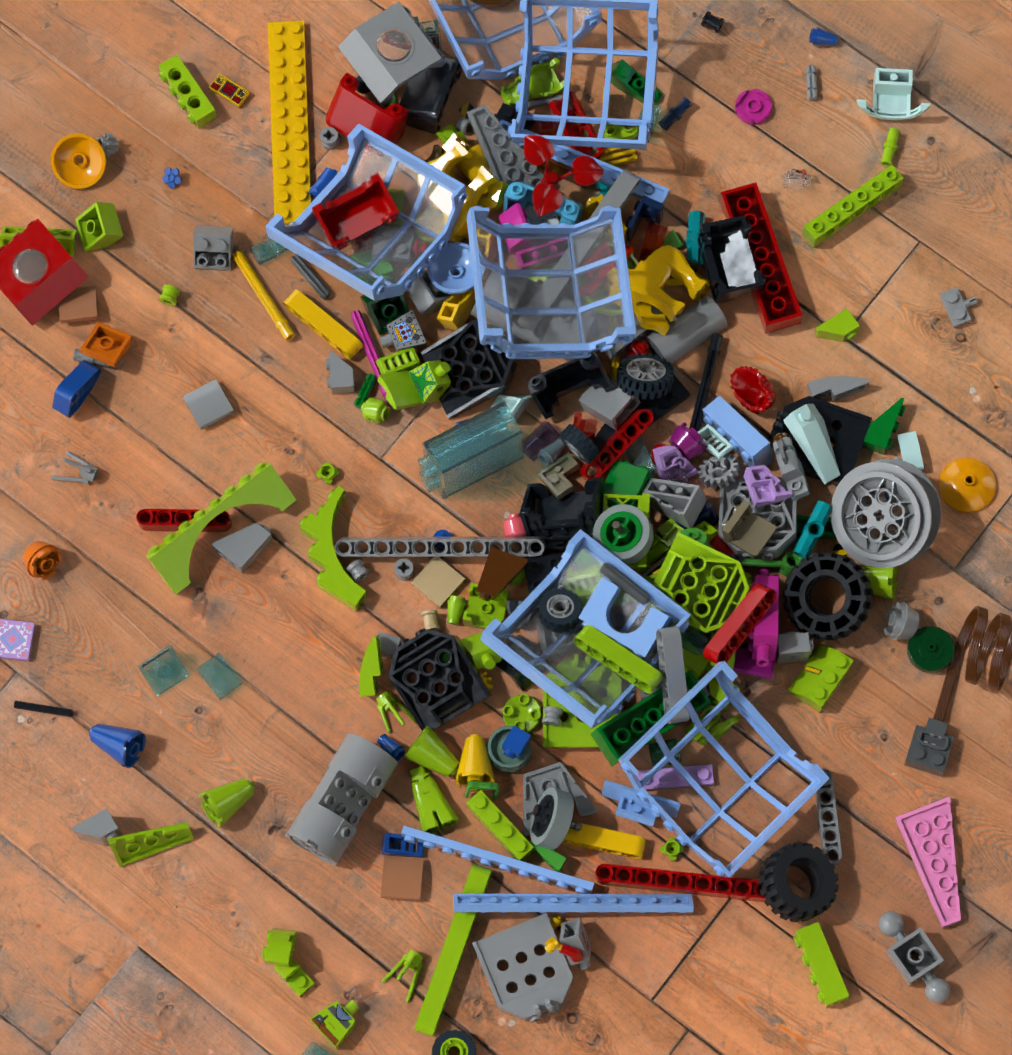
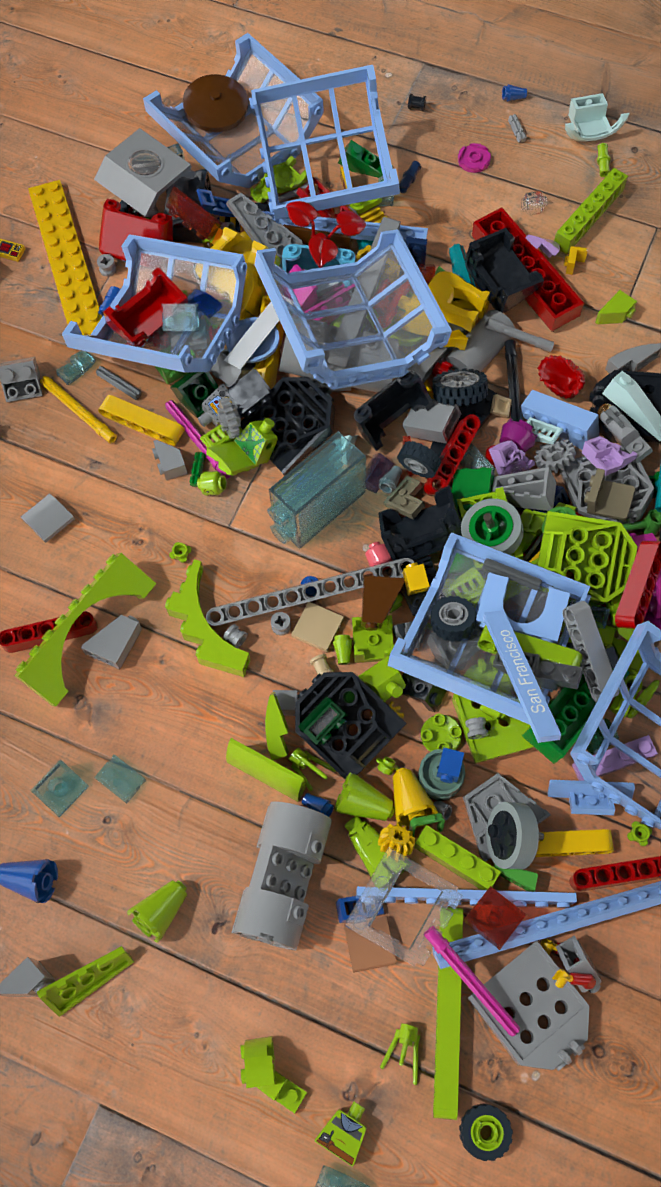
camera: 15 degrees left, 5 degrees down
(351, 703) = (265, 770): none -> lime slope
(387, 231) = (180, 317): none -> clear light blue plate
(407, 351) = (228, 417): none -> light grey gear
(414, 218) = (206, 303): none -> clear blue slope
(415, 673) = (323, 721): none -> dark green window
(418, 834) = (376, 894): none -> clear hinge
(430, 114) = (192, 215): none -> clear red slope
(437, 330) = (251, 394): none -> bracket
(448, 274) = (253, 337): none -> white sticker
(449, 797) = (397, 839): none -> yellow gear
(460, 893) = (442, 946): none -> dark pink axle
(463, 102) = (214, 204): none -> blue slope
(463, 728) = (387, 765): none -> lime plate
(500, 778) = (443, 808): none -> light grey piece
(514, 883) = (495, 918): none -> clear red plate
(539, 562) = (415, 578): none -> yellow brick
(593, 679) = (522, 677): none -> light blue tile
(615, 679) = (548, 674): none -> flat silver slope
(684, 403) = (500, 406): none -> tan tile
(691, 680) = (612, 656): none -> black tile
(709, 321) = (500, 327): none -> light grey piece
(789, 236) = (548, 246): none -> lavender slope
(811, 259) = (575, 254): none -> yellow bracket

